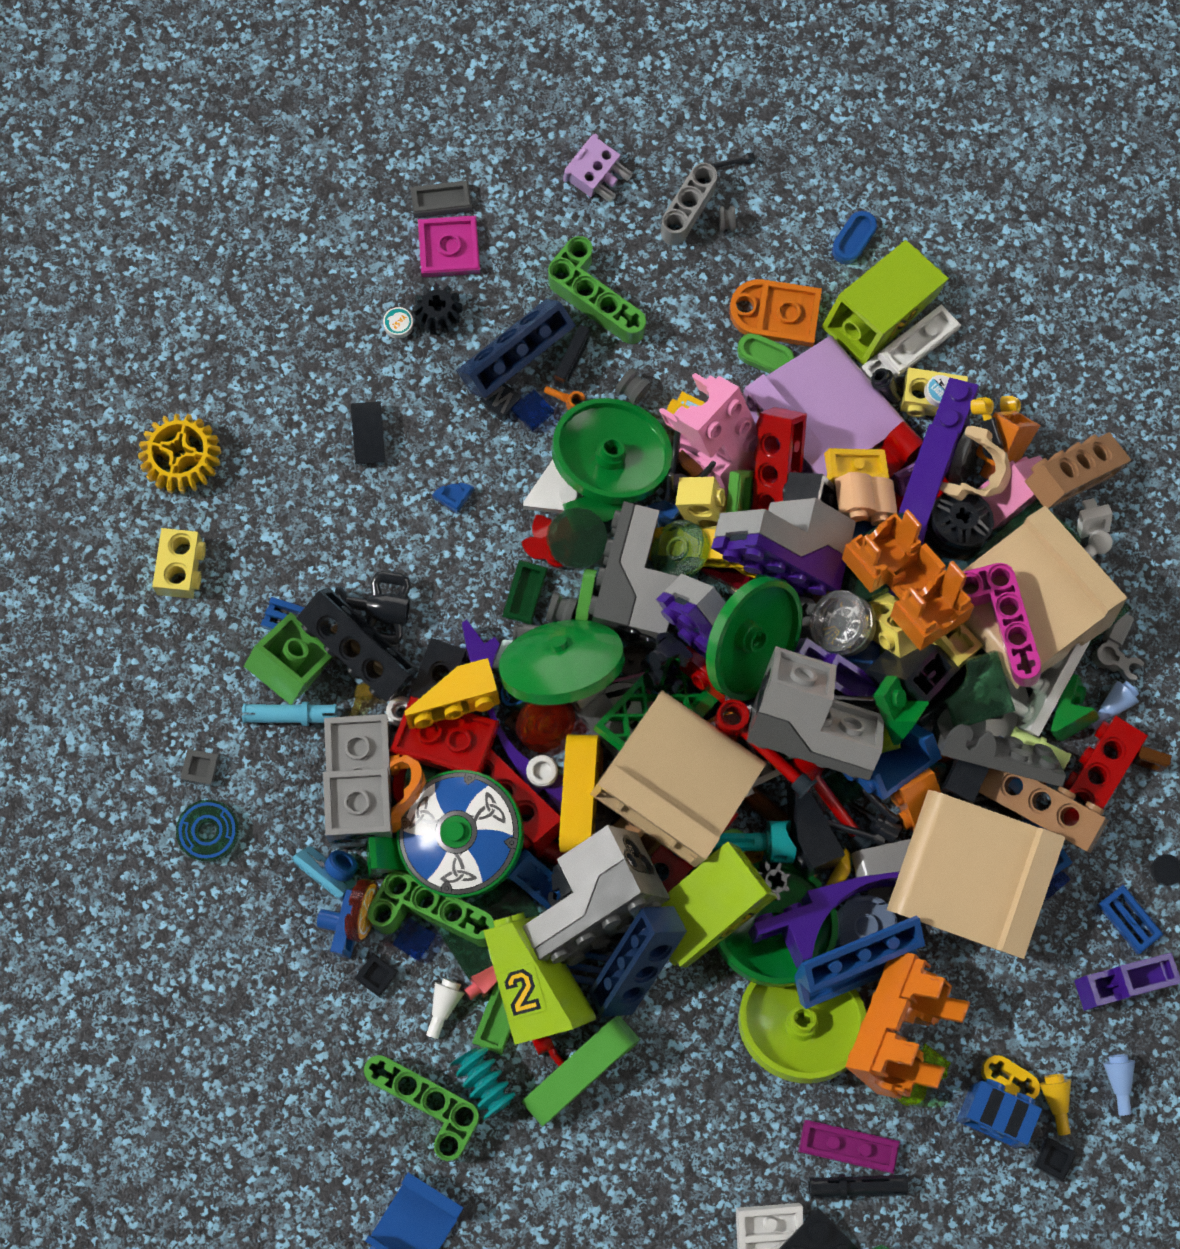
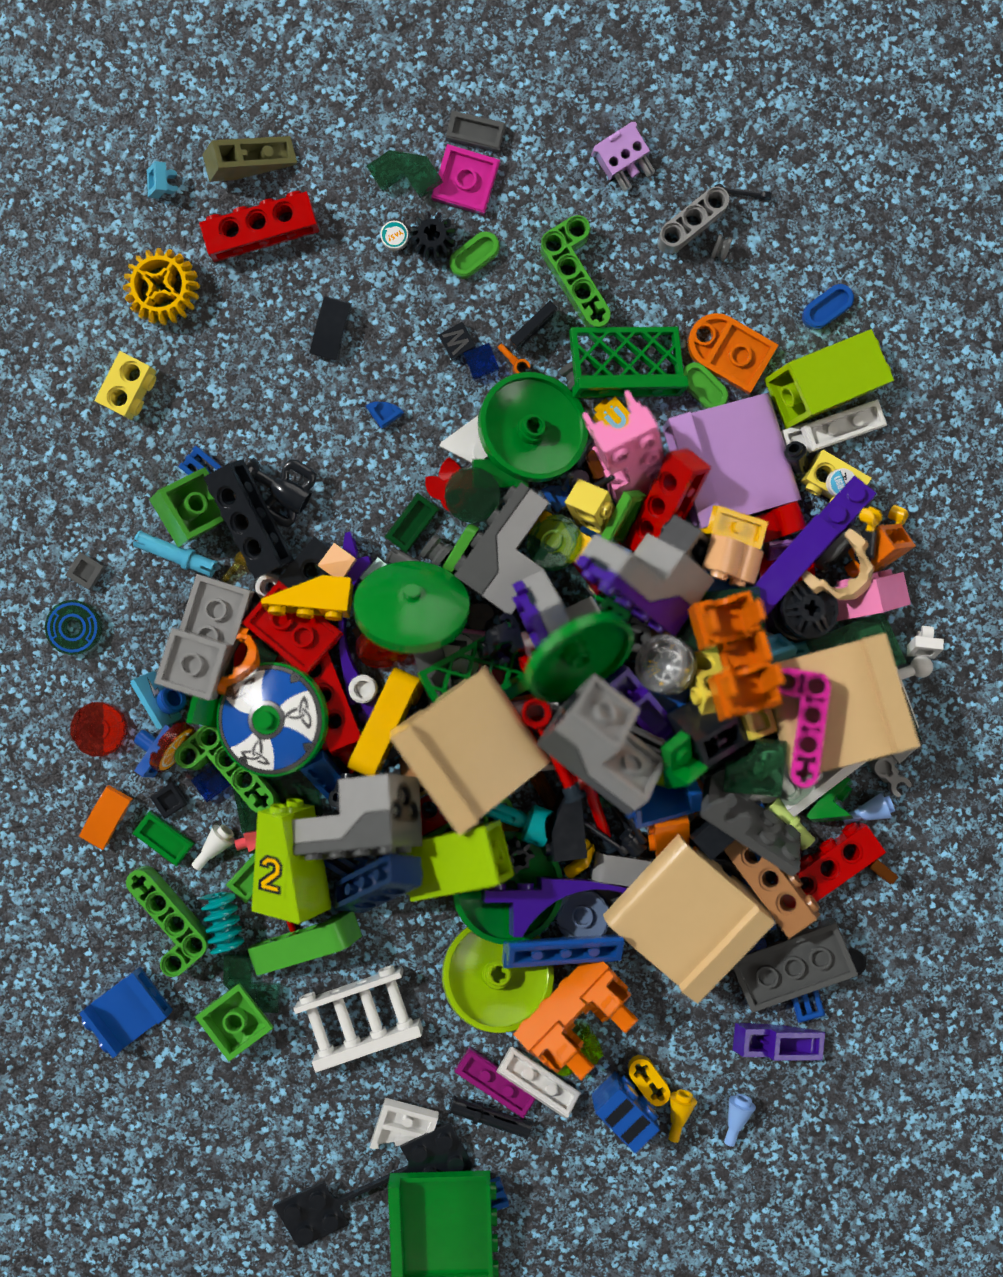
camera: 25 degrees right, 15 degrees up
(139, 353) = (157, 180): none -> medium azure tile
(222, 300) = (247, 157): none -> olive slope
(253, 376) = (274, 231): none -> red brick
(272, 928) = (98, 729): none -> clear red tile
(314, 1019) = (105, 817): none -> orange slope
(374, 256) = (395, 165): none -> clear green tile
(385, 1019) = (163, 838): none -> green tile
(465, 650) = (337, 561): none -> light nougat slope
(485, 312) = (474, 255): none -> bright green tile
(515, 348) = (486, 300): dark blue brick -> none
(539, 1183) = (234, 1021): none -> bright green slope
(549, 1154) = (239, 969): none -> clear green tile
(672, 383) = (616, 385): none -> green fence
(677, 1162) = (379, 1037): none -> white fence
(894, 1126) = (538, 1082): none -> white tile
(1054, 1159) = (657, 1155): black tile -> none
(1076, 469) = (930, 602): medium nougat brick -> none
(1107, 892) = (795, 966): none -> dark grey hinge

